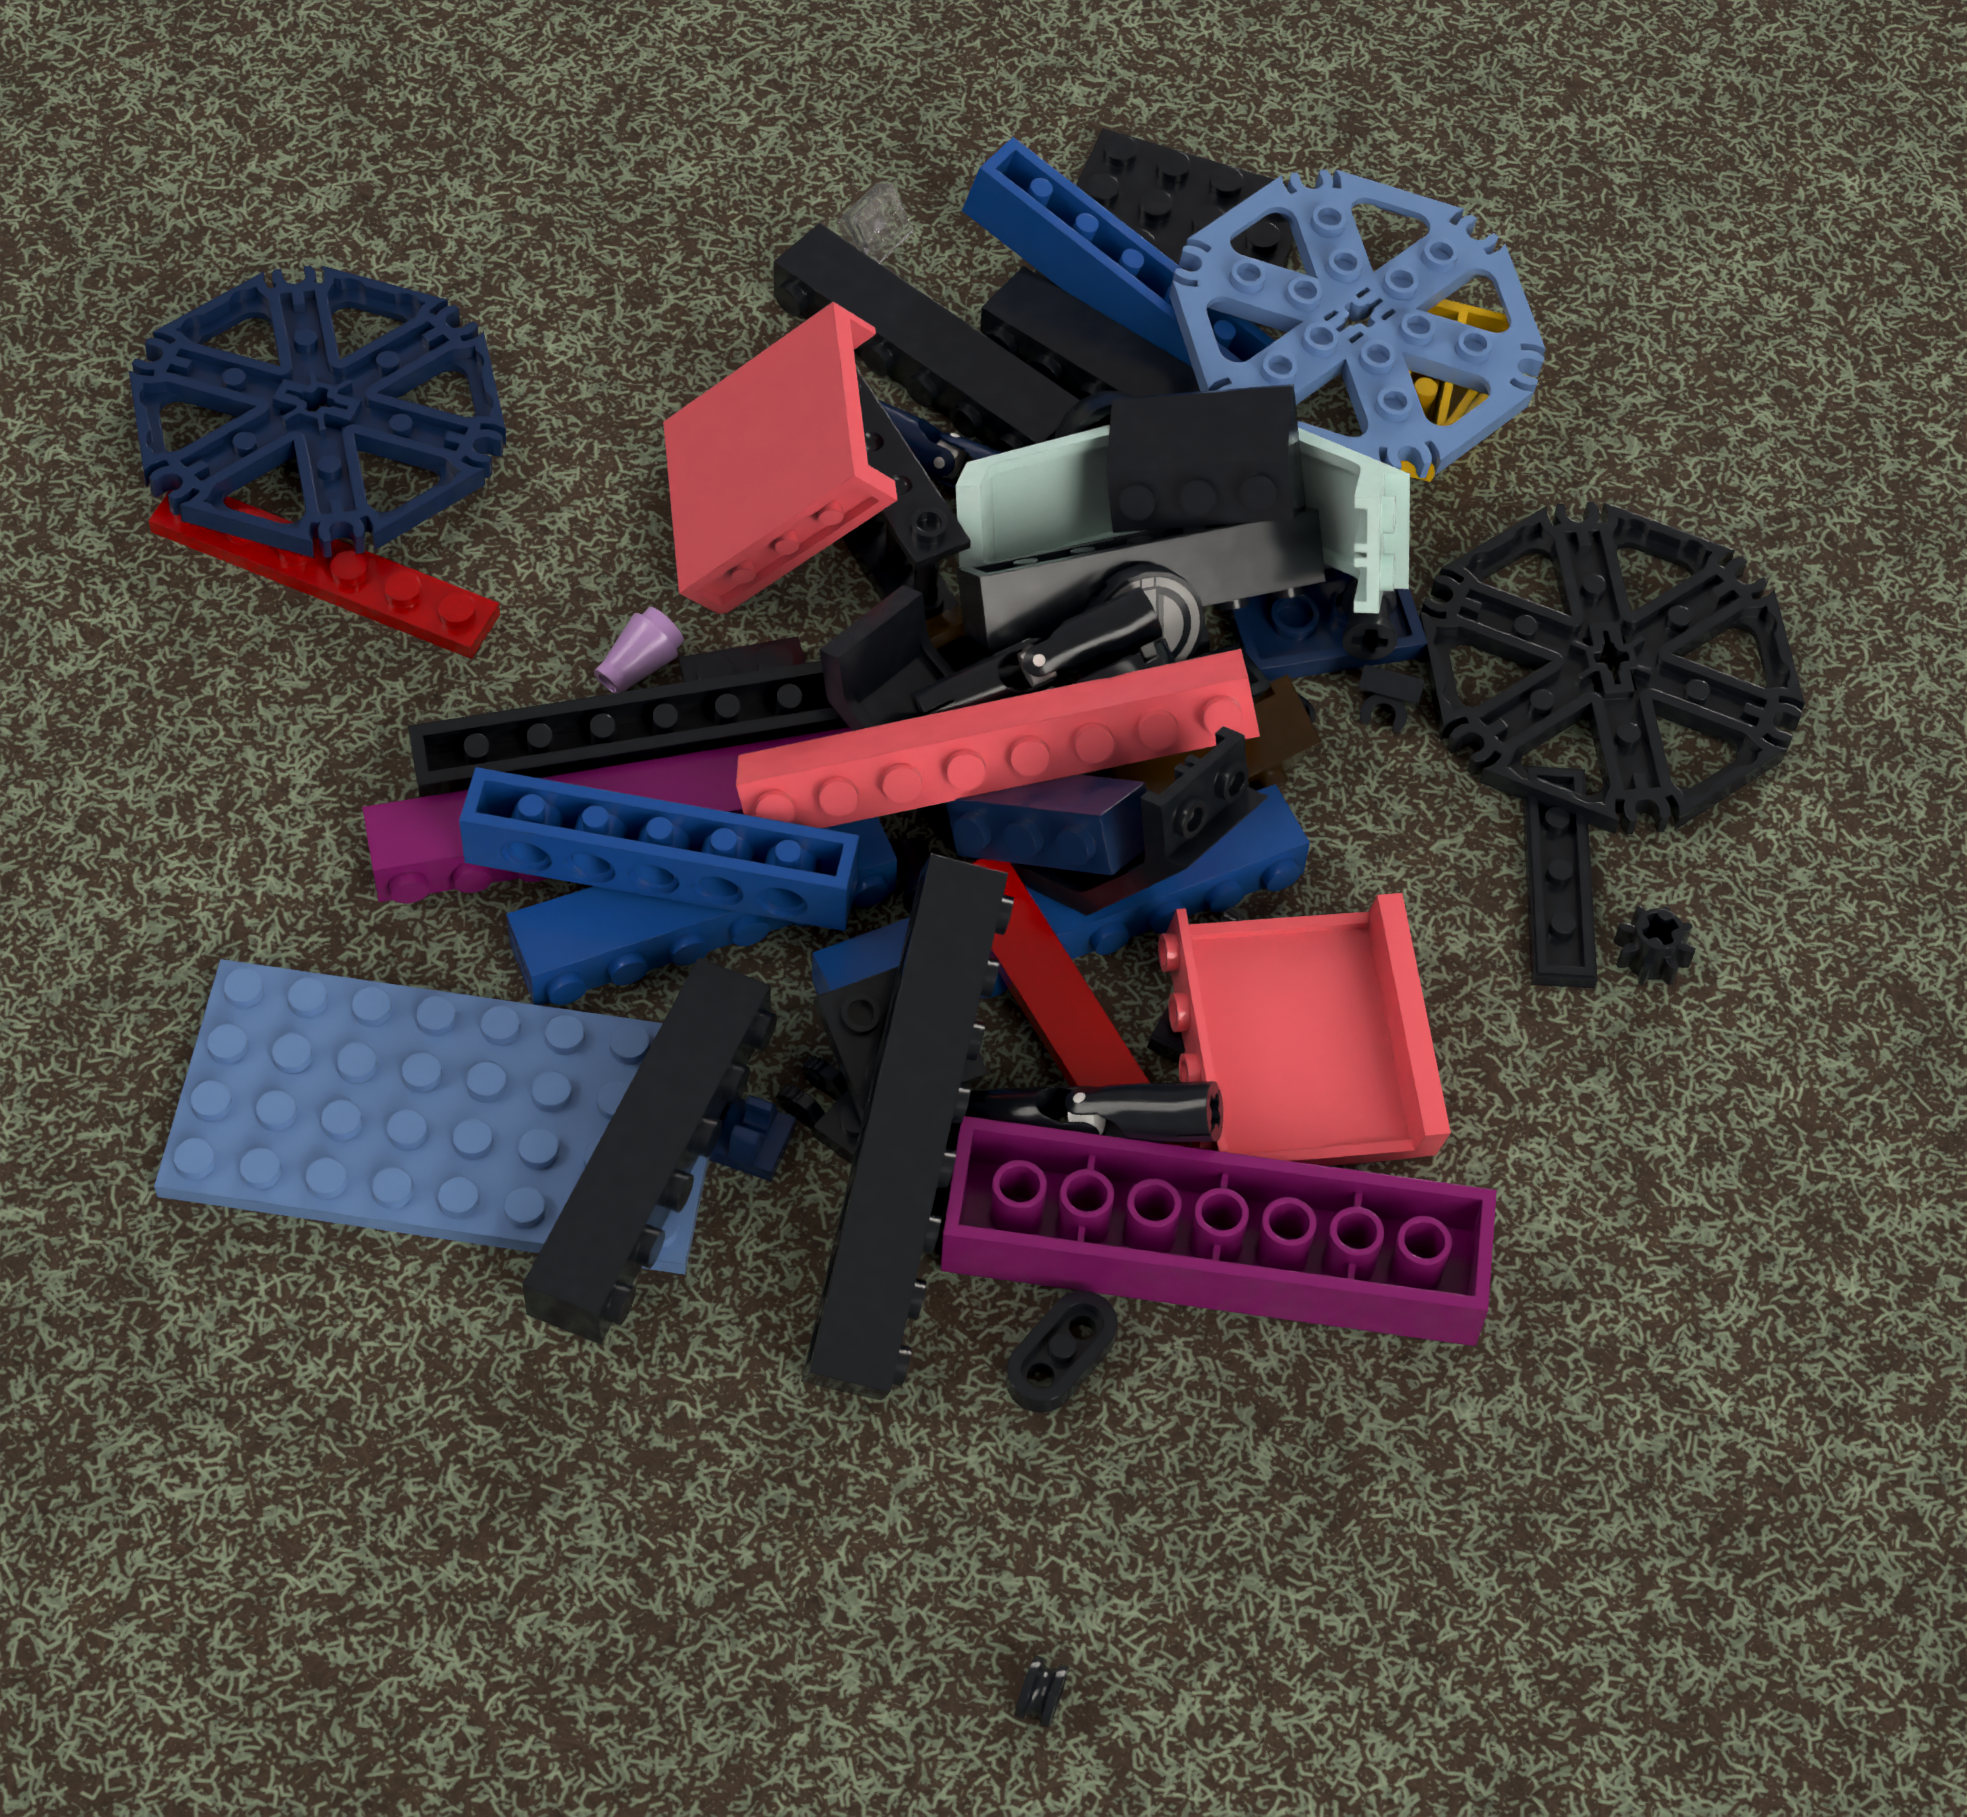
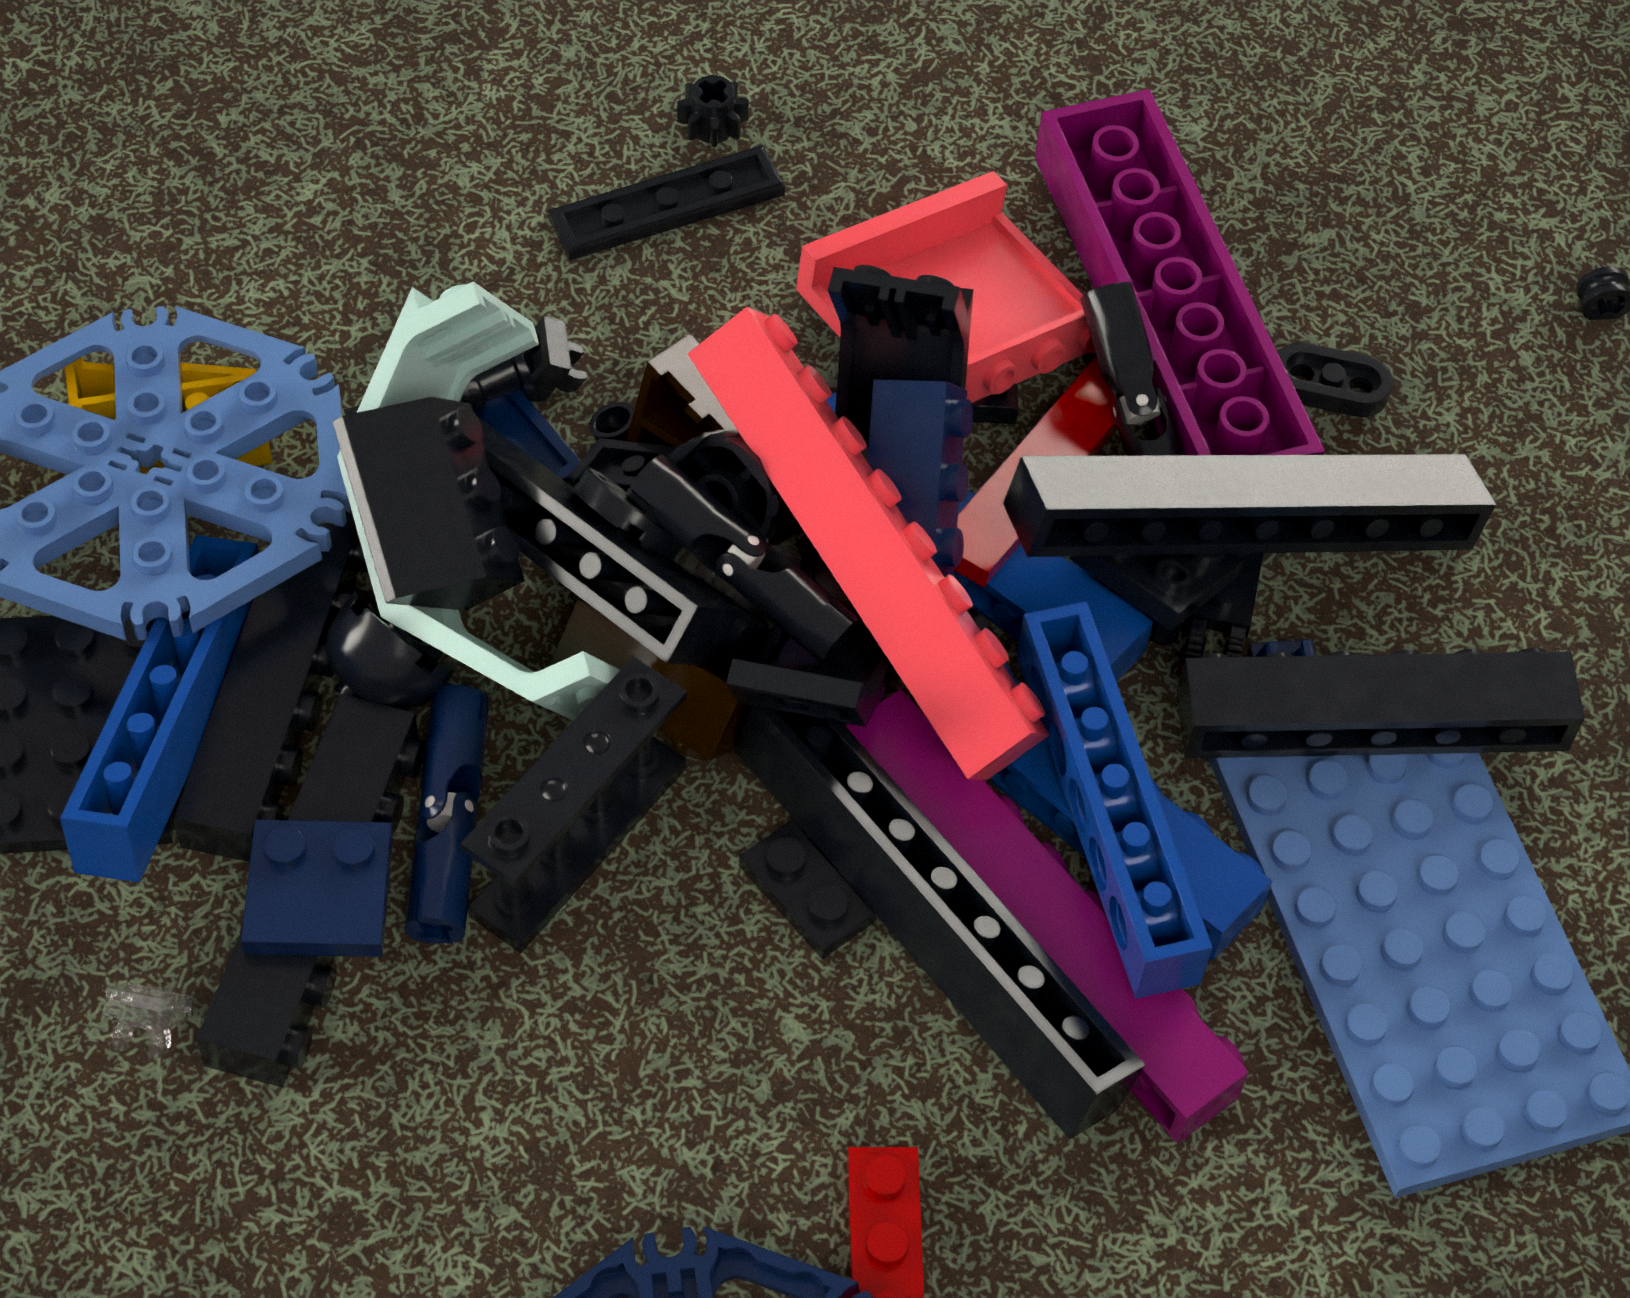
camera: 115 degrees left, 0 degrees up
(640, 650) = (837, 988): lavender cone -> none
(772, 464) = (589, 903): coral panel -> none
(914, 319) = (317, 888): none -> dark blue plate
(1644, 643) = (385, 203): black plate -> none

